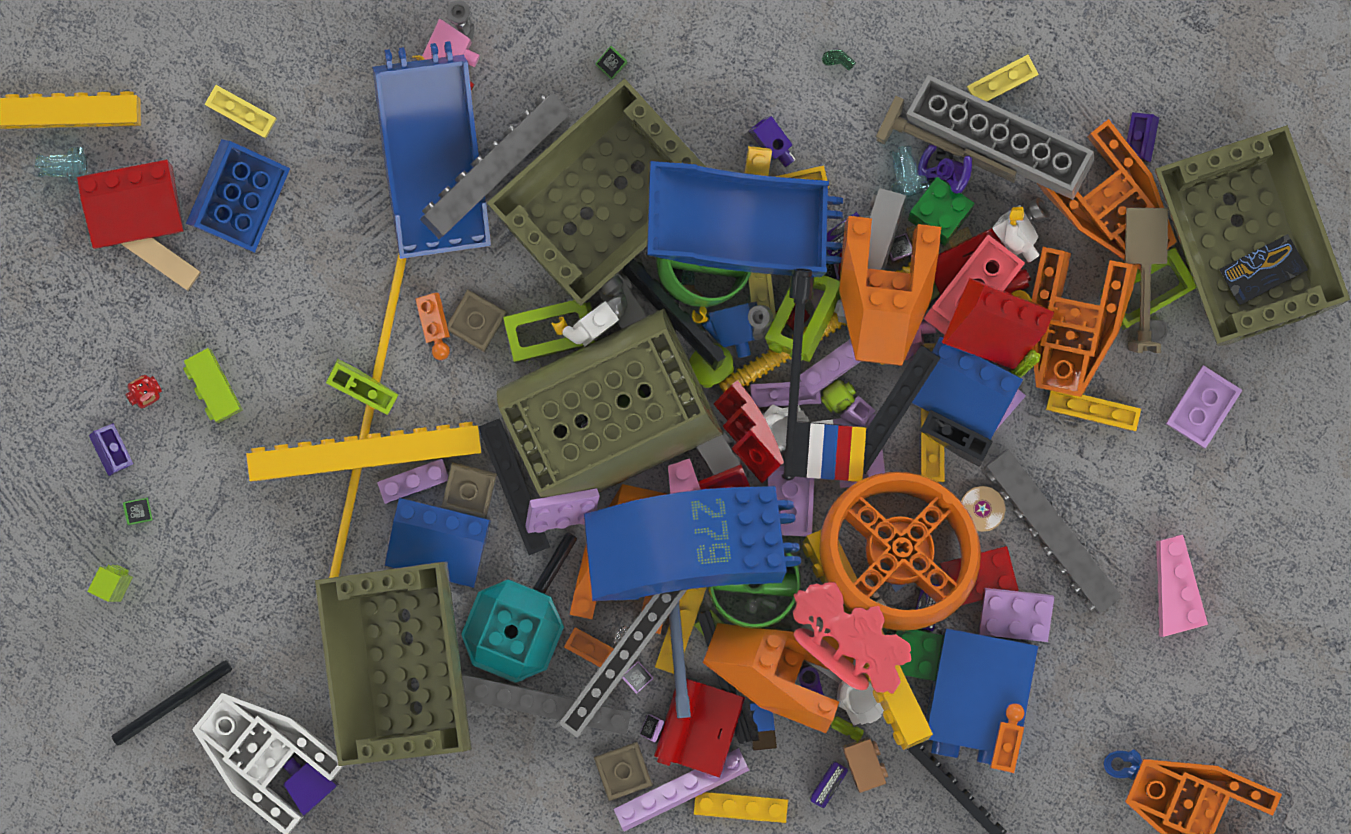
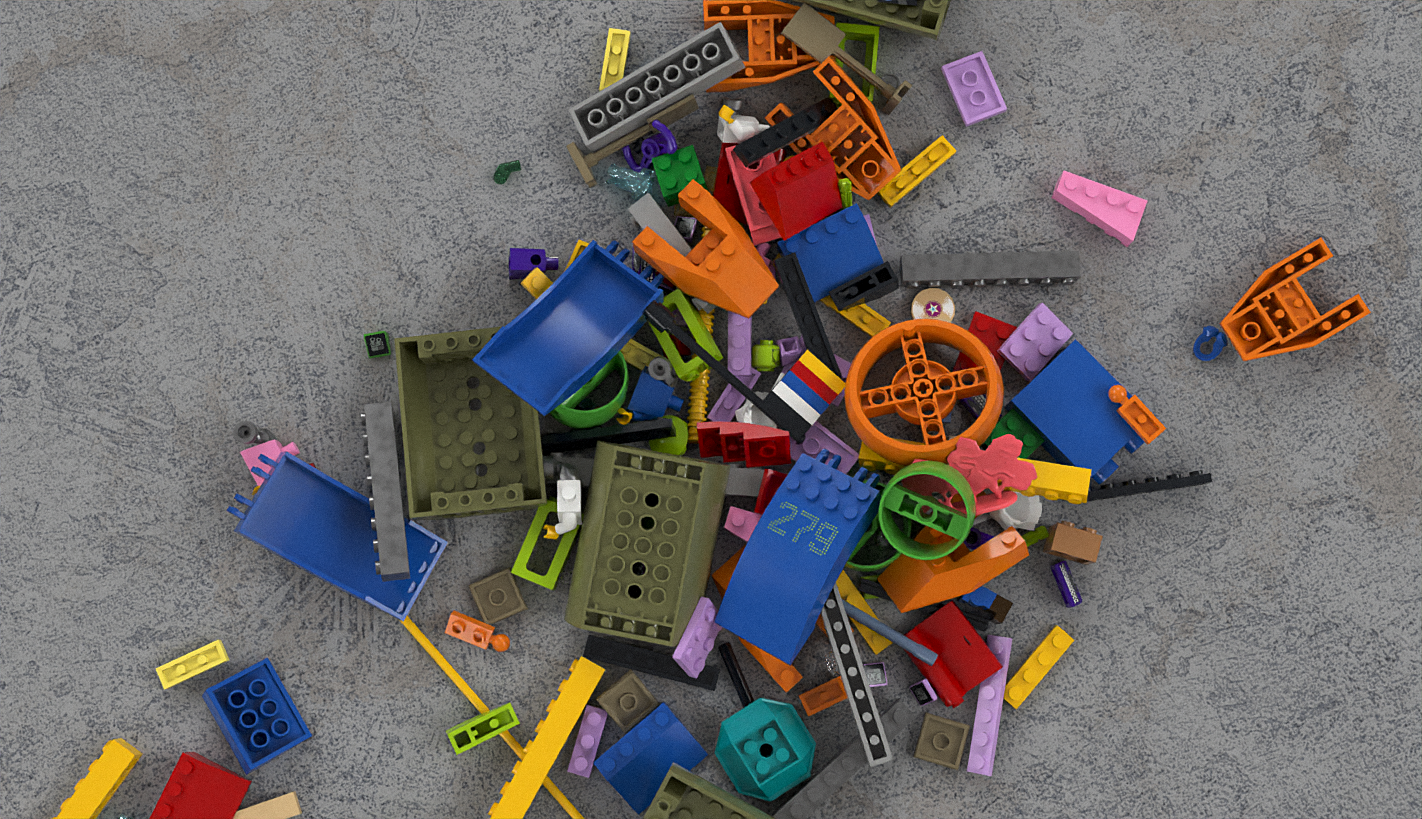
camera: 50 degrees left, 5 degrees down
(799, 639) = (910, 505): none -> bright green cylinder
(1040, 275) = (784, 132): none -> black plate

